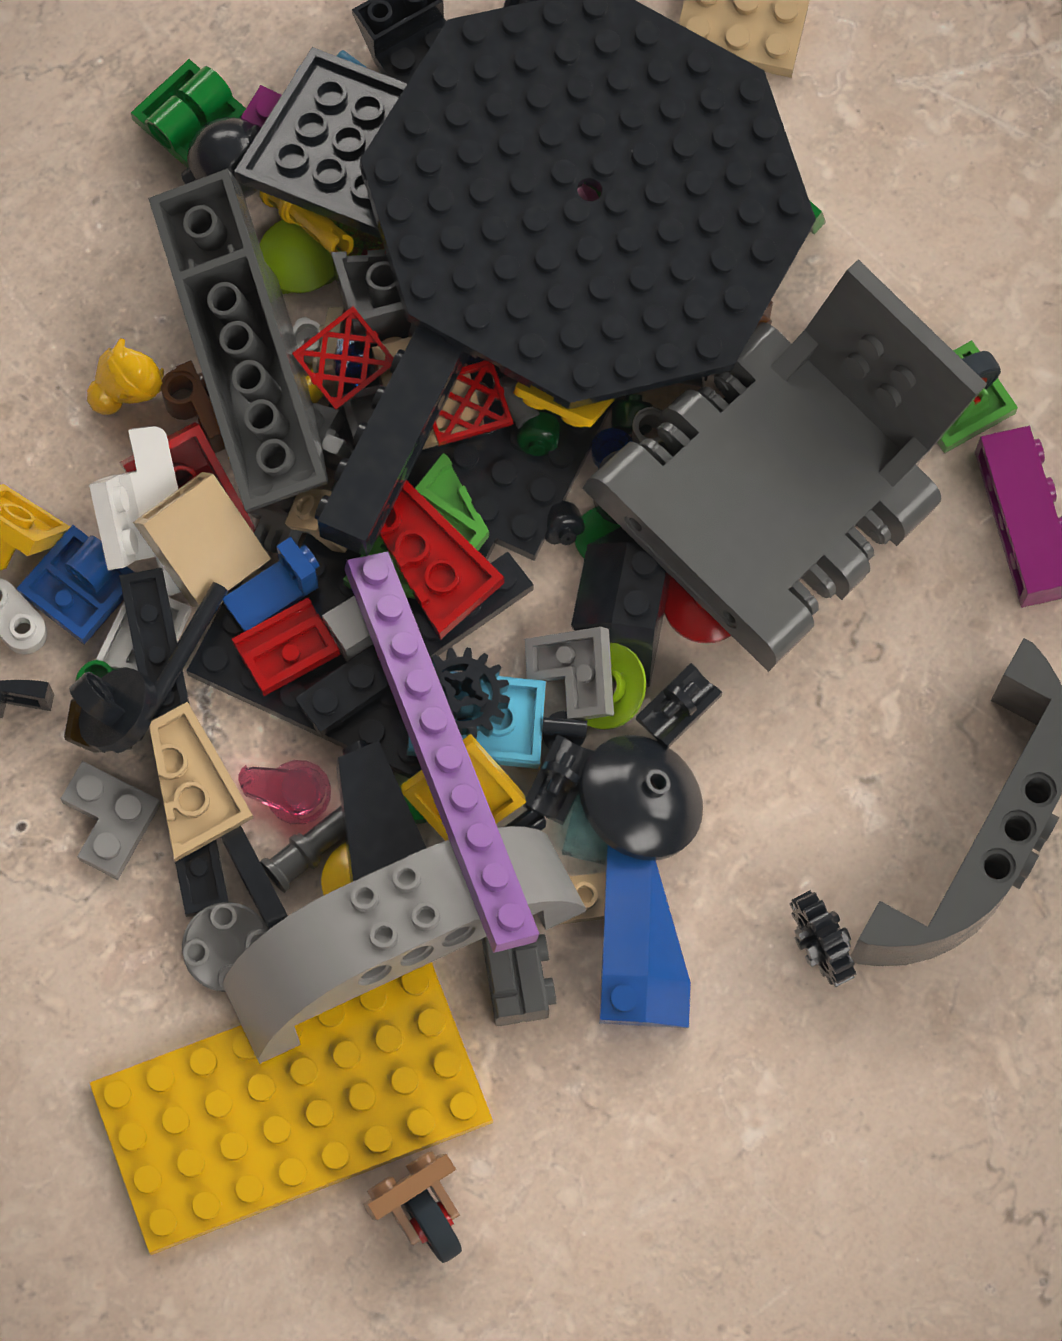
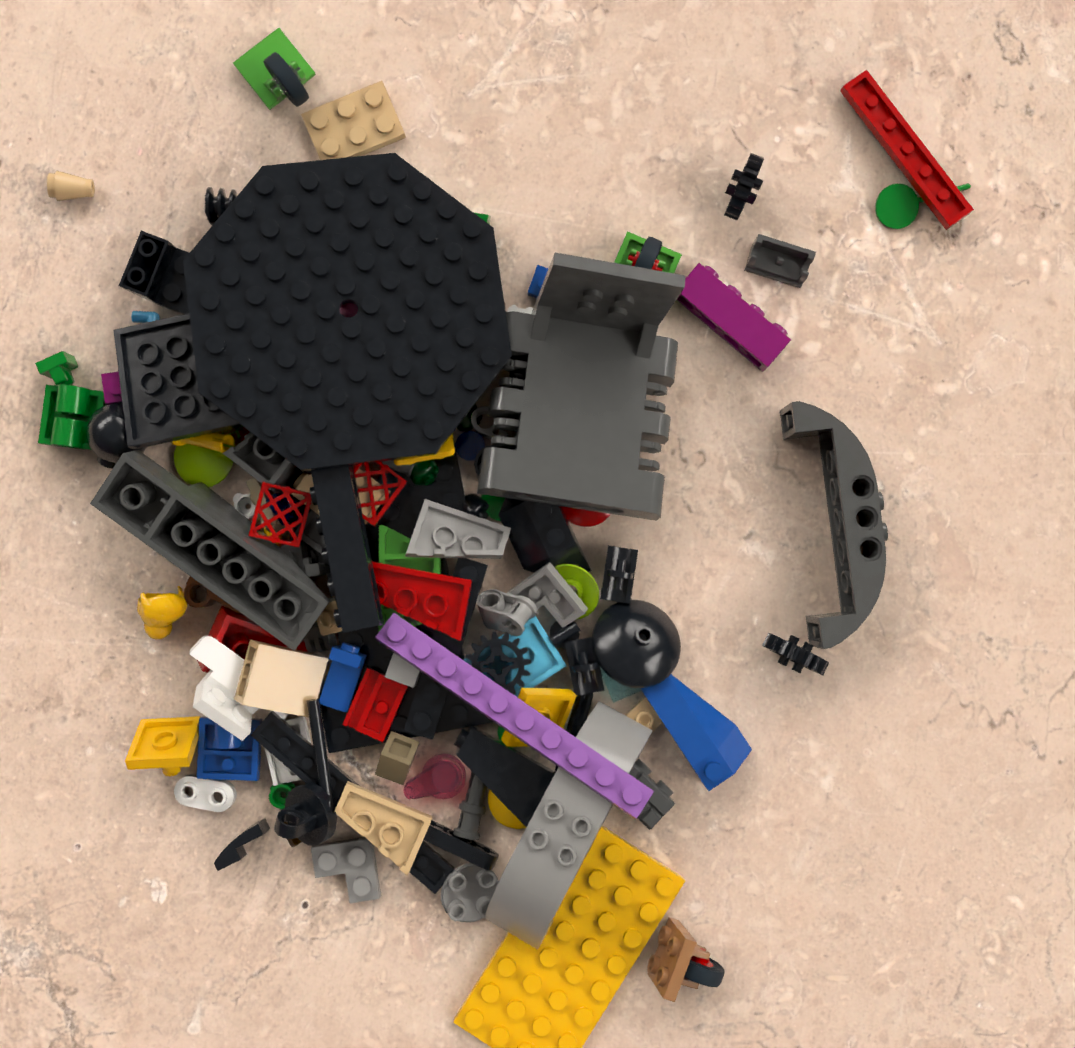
camera: 30 degrees left, 15 degrees up
(216, 49) = (58, 367): none -> green tile
(262, 726) = (397, 758): none -> dark tan brick
(516, 649) = (503, 613): none -> light grey piece
(522, 523) = (455, 534): none -> light grey wing

